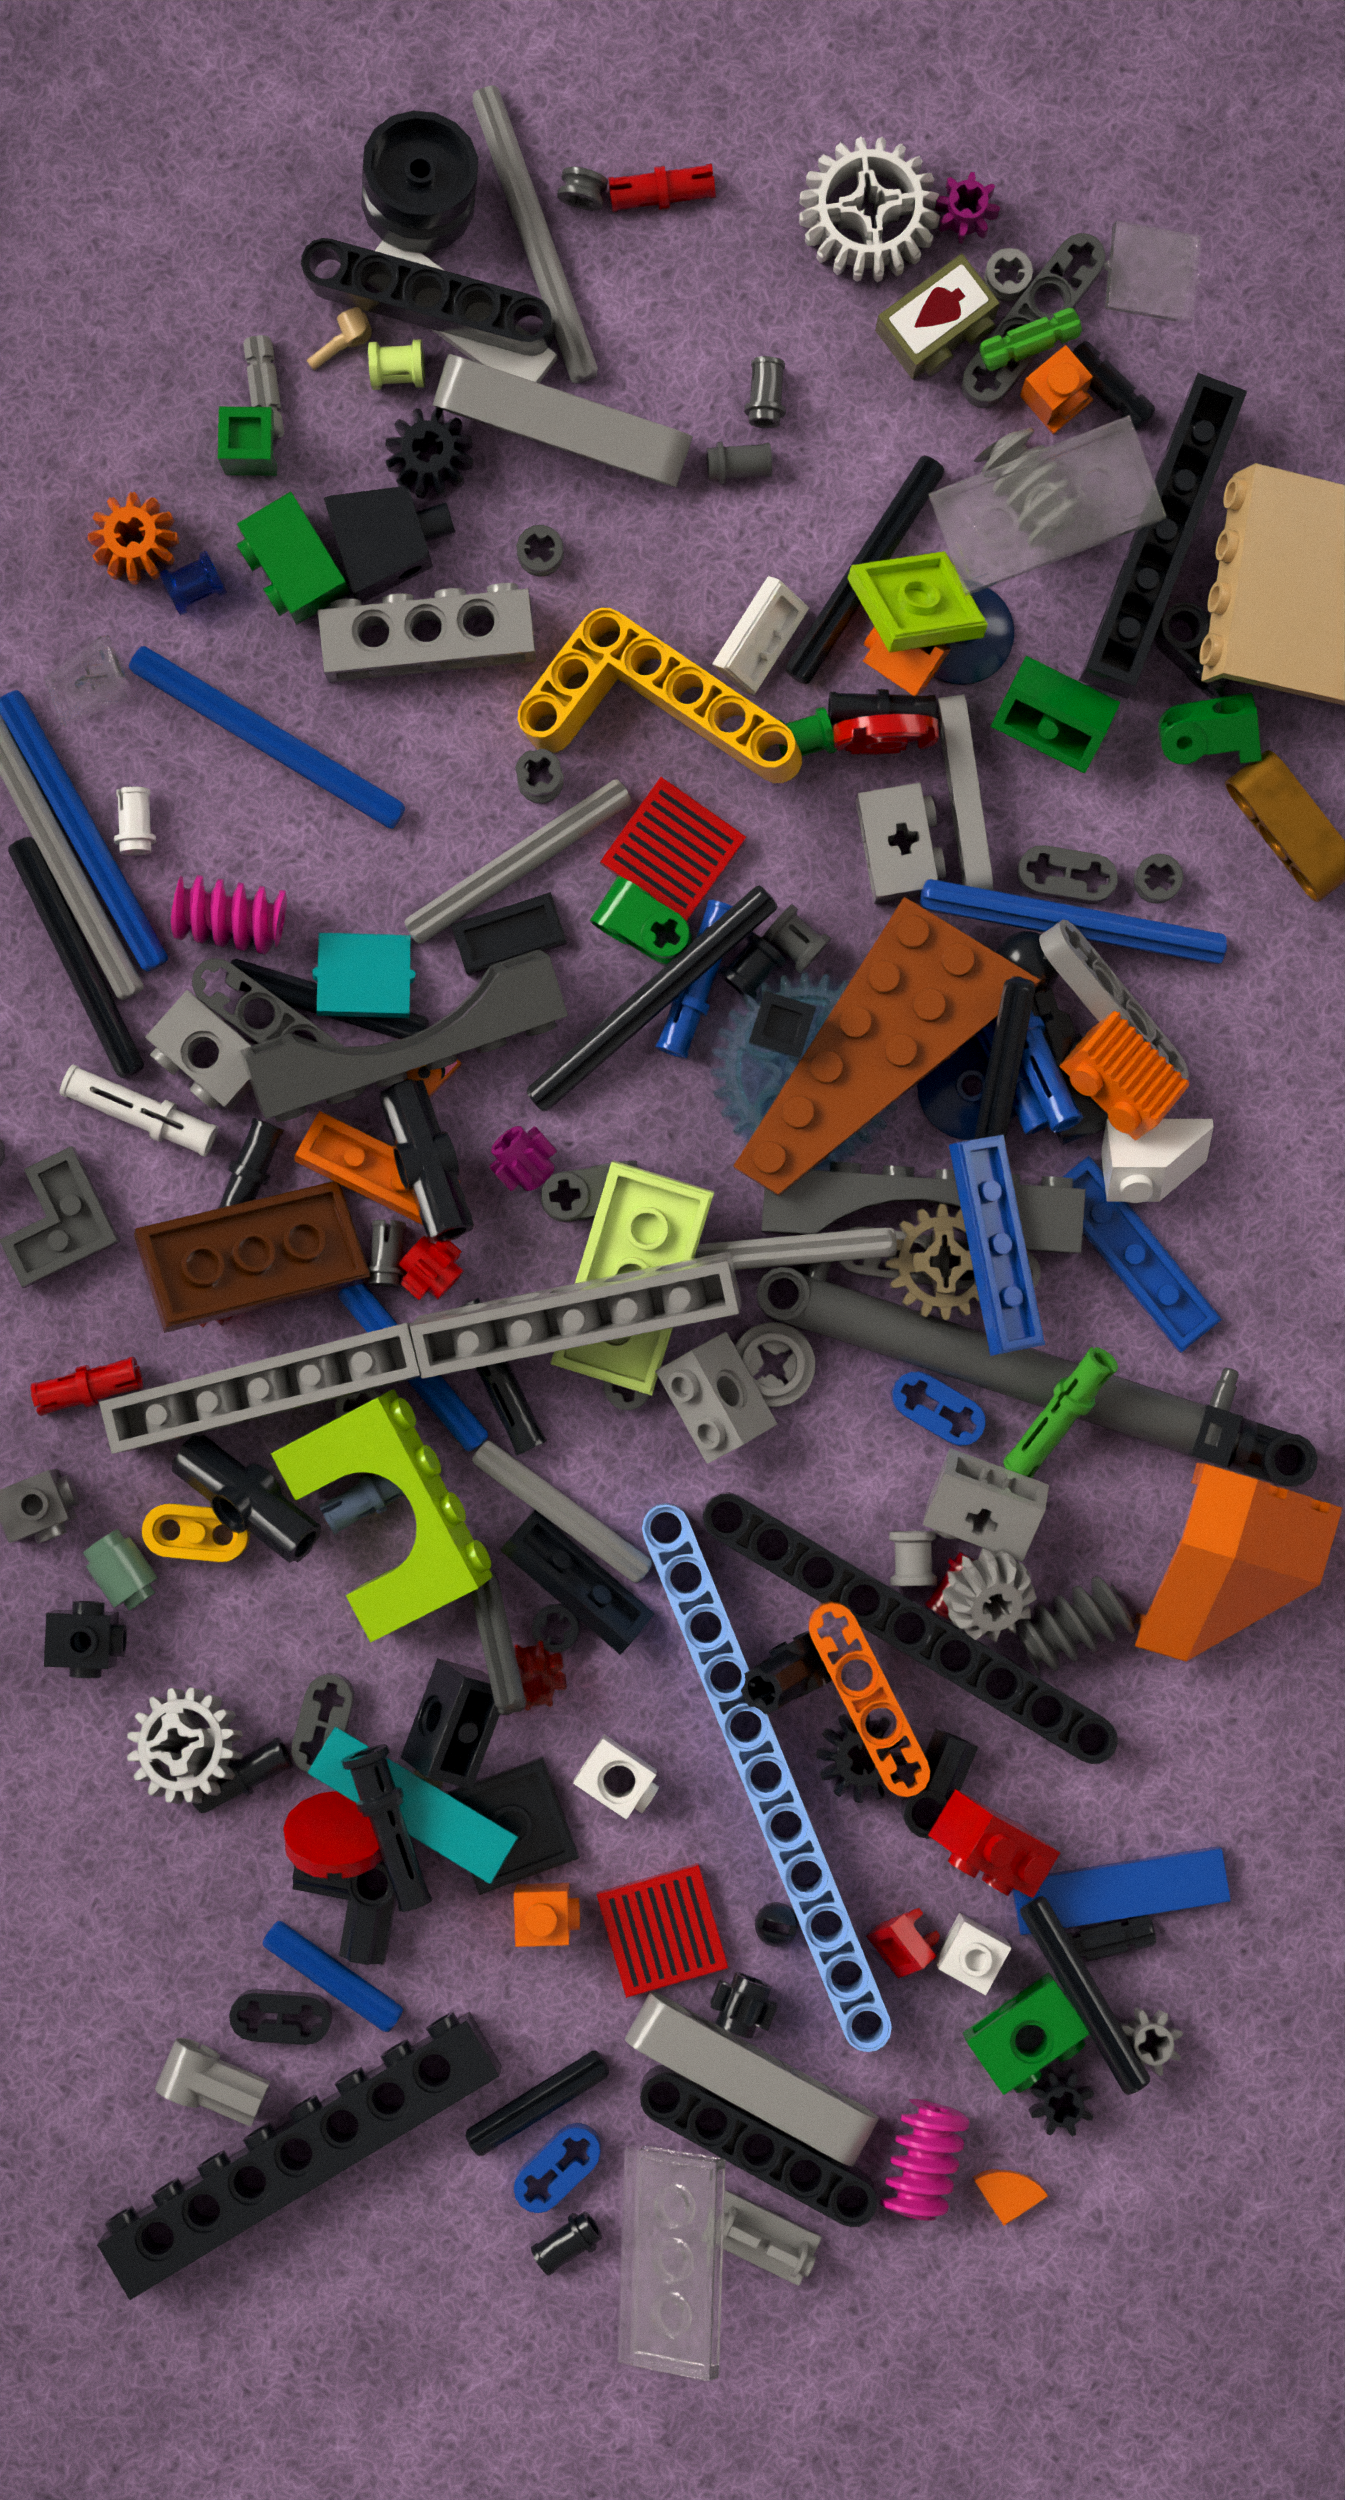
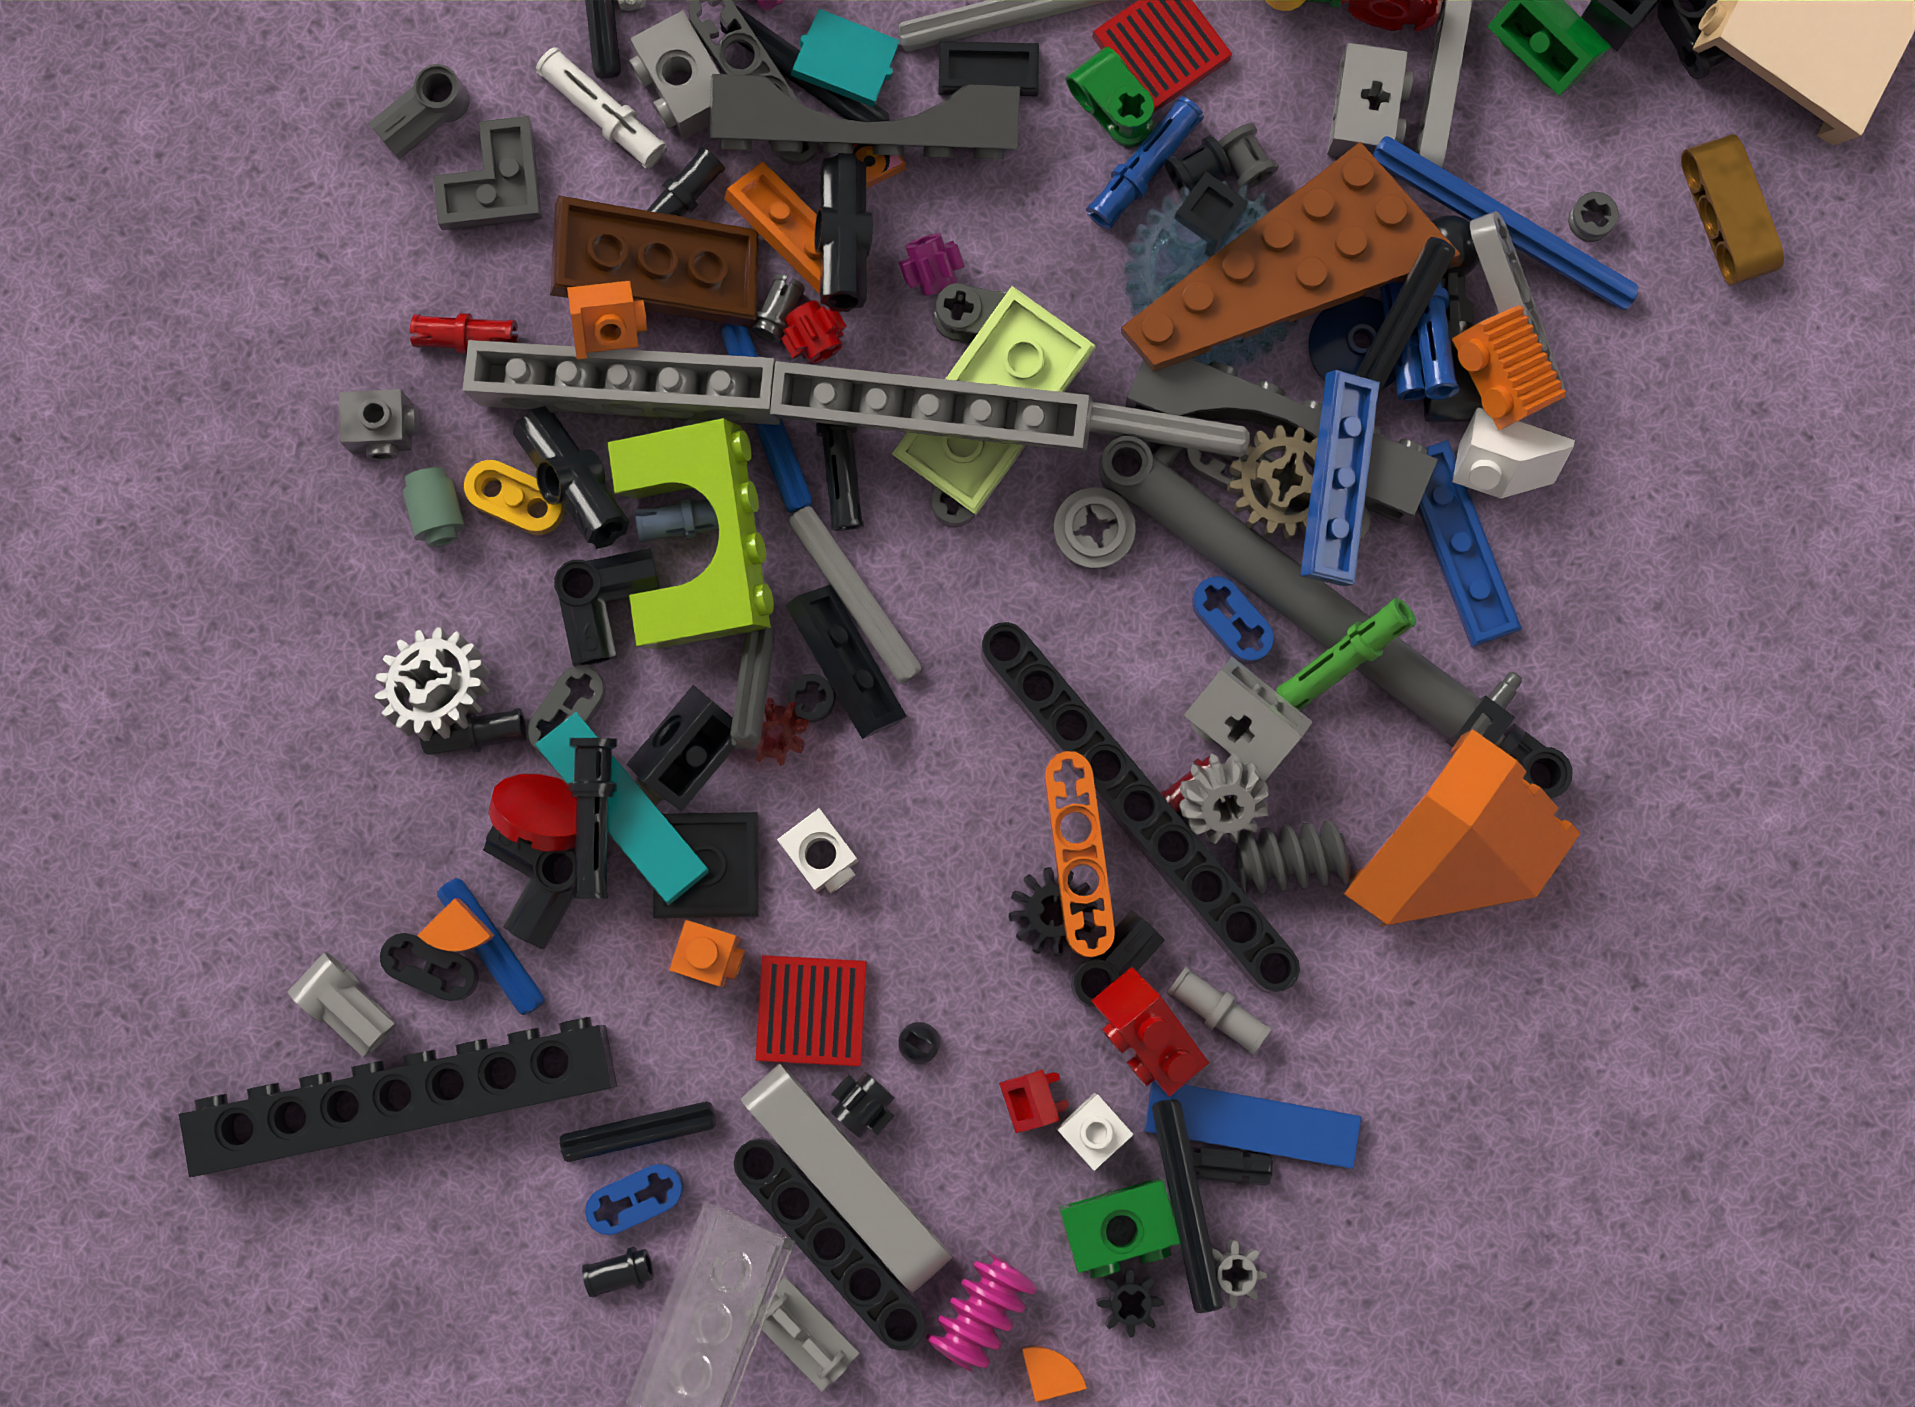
camera: 15 degrees right, 5 degrees down
(65, 1643) = (359, 552): black brick -> none
(226, 1338) = (605, 317): none -> orange brick
(296, 1975) = (456, 929): none -> orange tile
(313, 1629) = (587, 618): none -> black piece
(652, 998) = (1099, 161): black axle -> none
(716, 1397) = (1032, 535): light grey brick -> none
(769, 1801) = (966, 871): light blue beam -> none
(786, 1675) = (1009, 808): black piece -> none
(913, 1558) = (1163, 746): light grey bush -> none
(1053, 1794) = (1219, 1010): none -> light grey pin
(1067, 861) = (1517, 175): dark grey beam -> none
(1211, 728) = (1687, 96): green leg -> none

